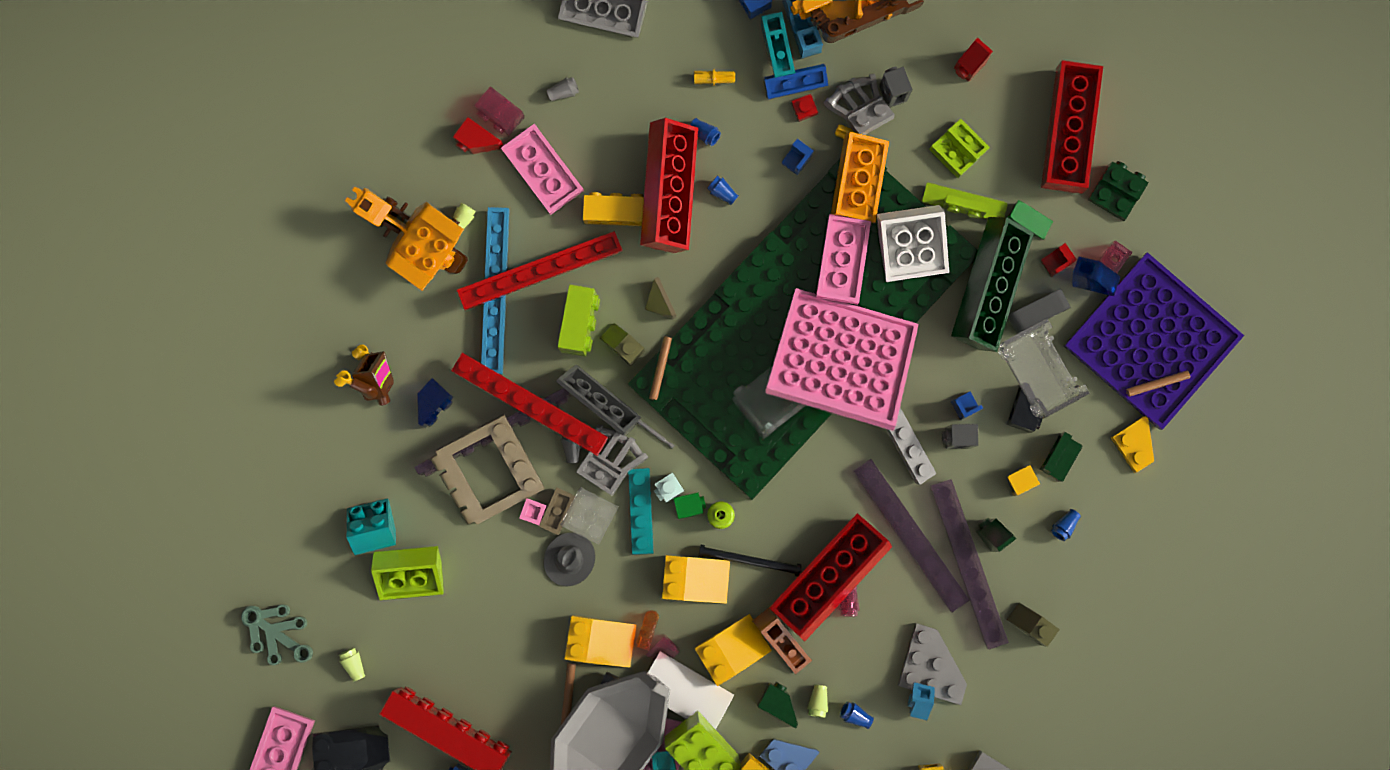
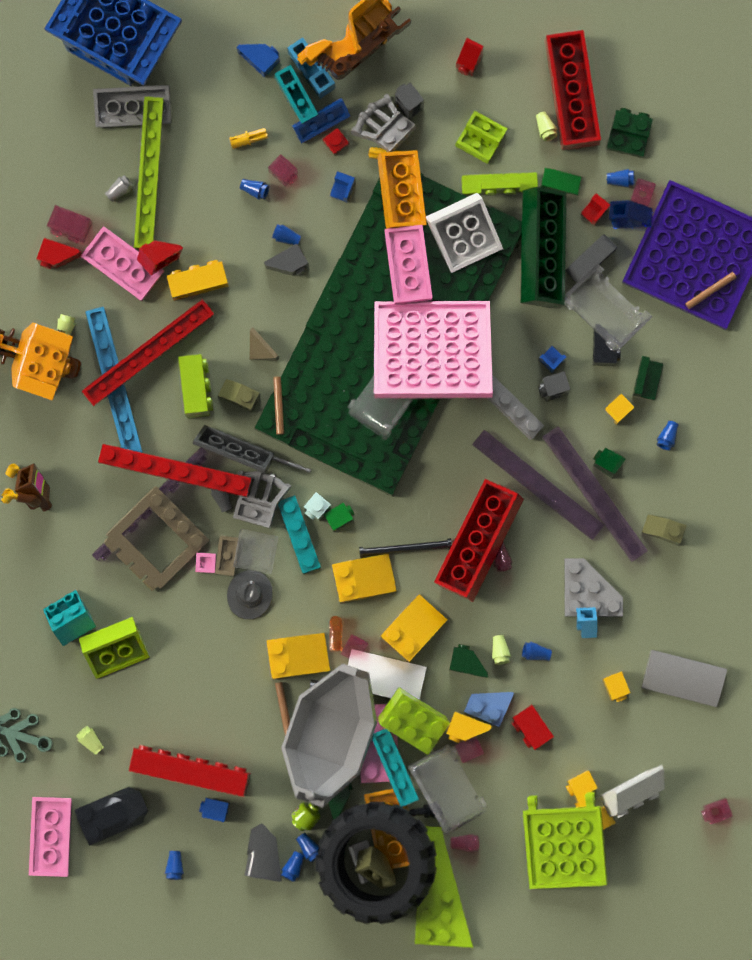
camera: 15 degrees left, 0 degrees up
(431, 401) = (88, 494): clear blue slope -> none
(581, 171) = (158, 255): none -> red slope
(598, 82) = (148, 171): none -> lime plate
(669, 186) = (238, 245): red brick -> none
(717, 219) = (288, 262): none -> dark grey slope
(728, 517) = (367, 523): lime head -> none
(740, 121) = (283, 170): none -> clear pink brick
(782, 640) = (453, 607): dark orange slope -> none
(1032, 160) = (546, 127): none -> yellowish green cone
(1096, 235) = (621, 178): none -> blue cone
(1135, 444) = (708, 348): yellow wing -> none

